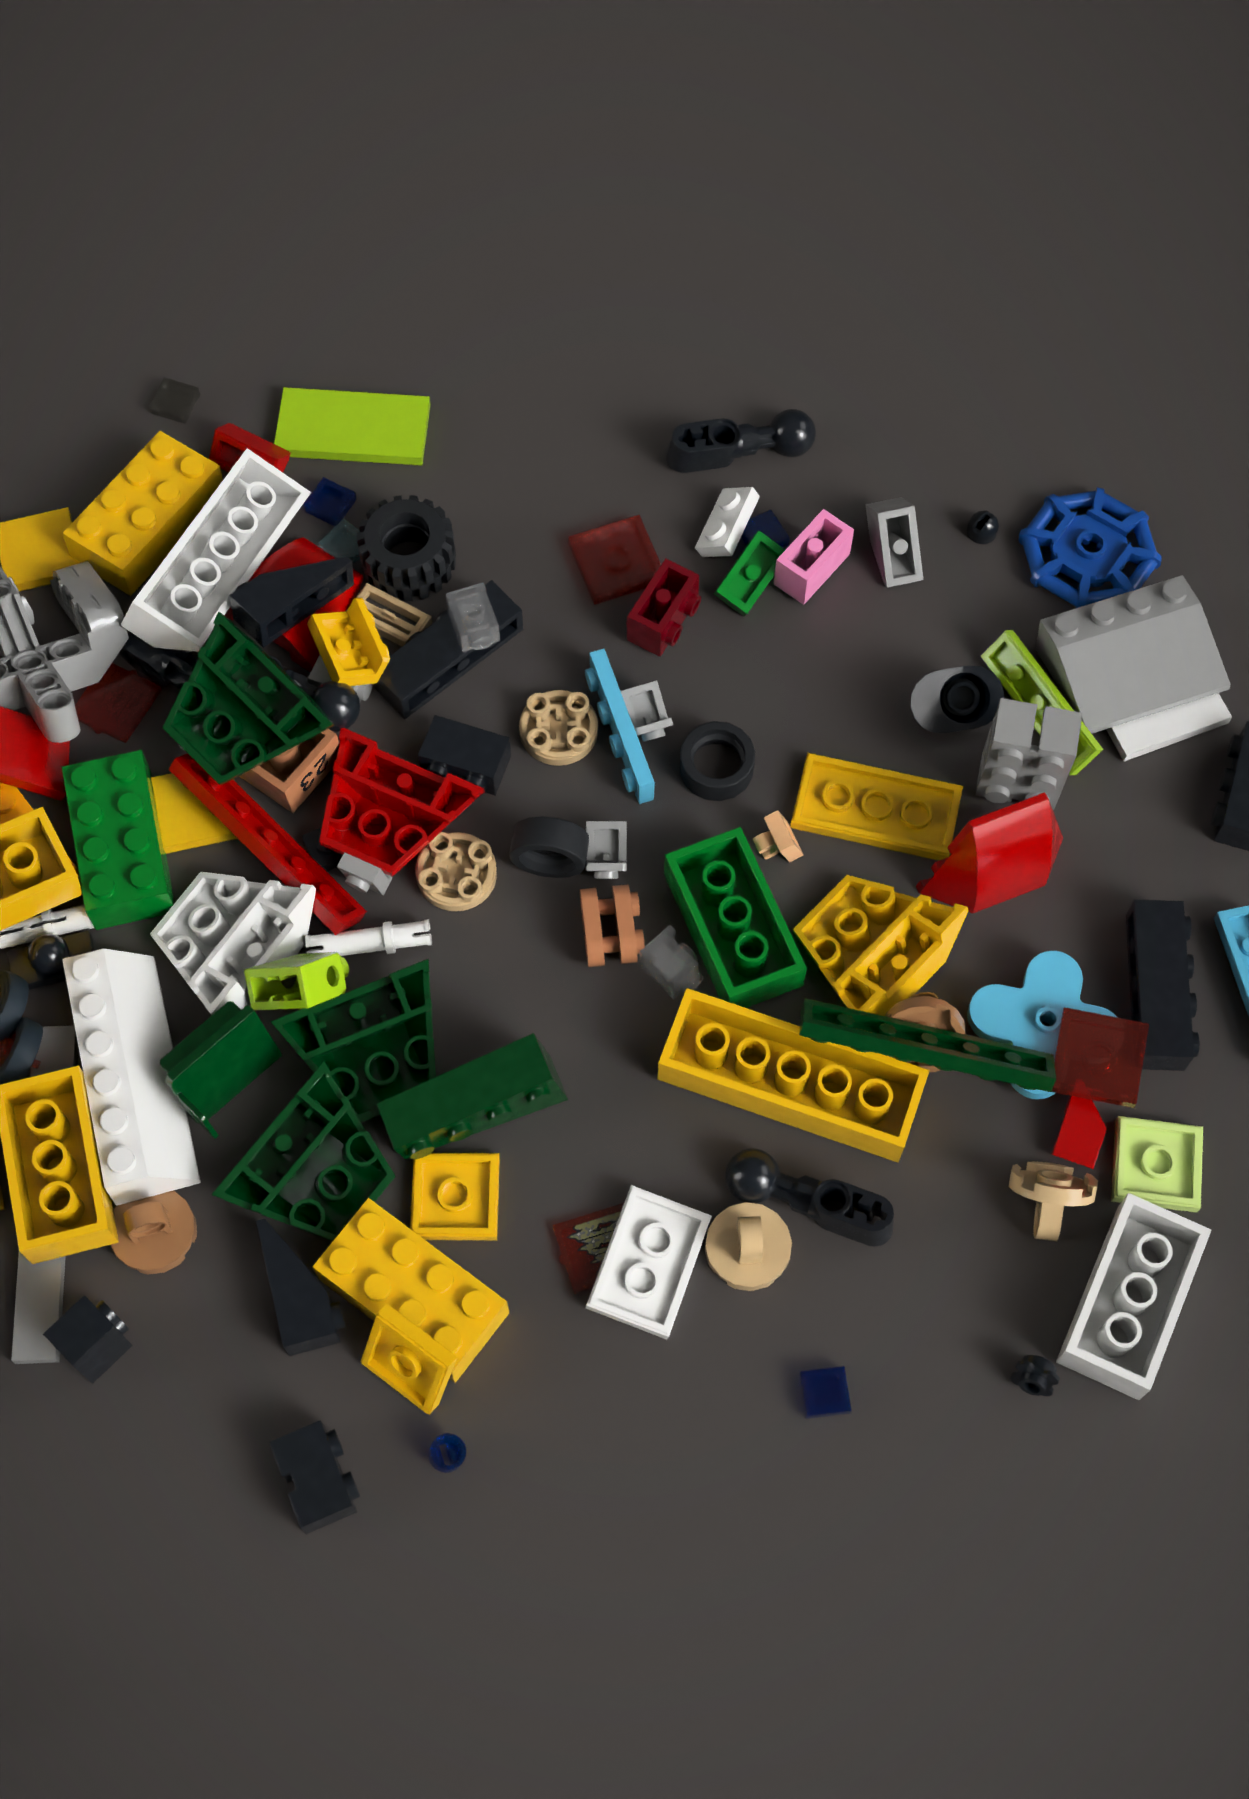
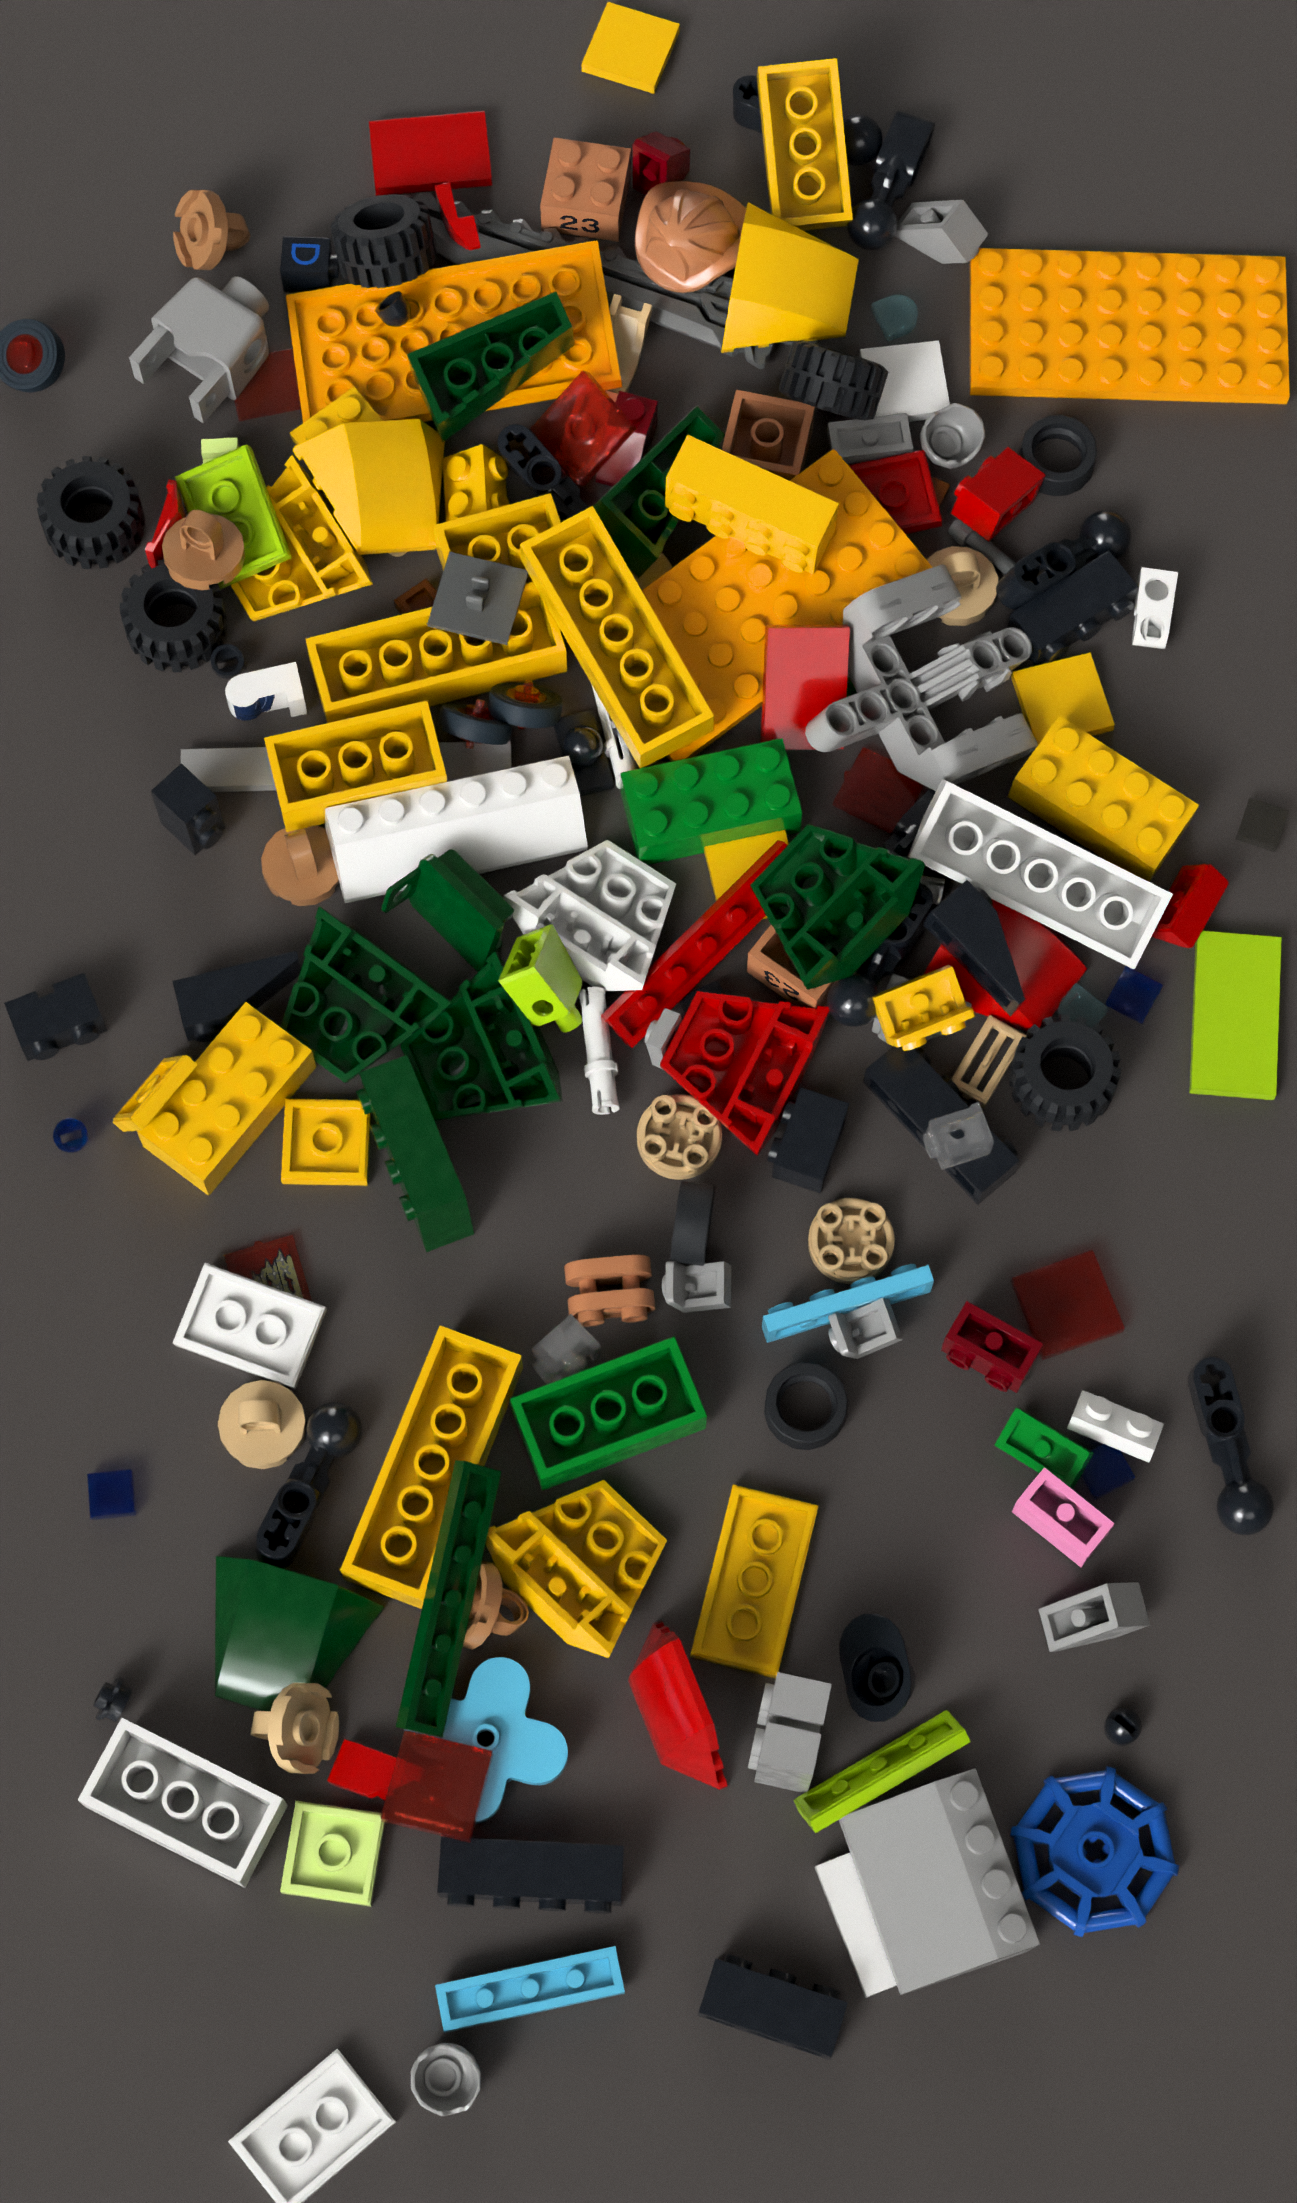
camera: 90 degrees right, 5 degrees up
(778, 839) = (710, 1469): light nougat tile -> none
(957, 1221) = (280, 1630): none -> dark green wedge

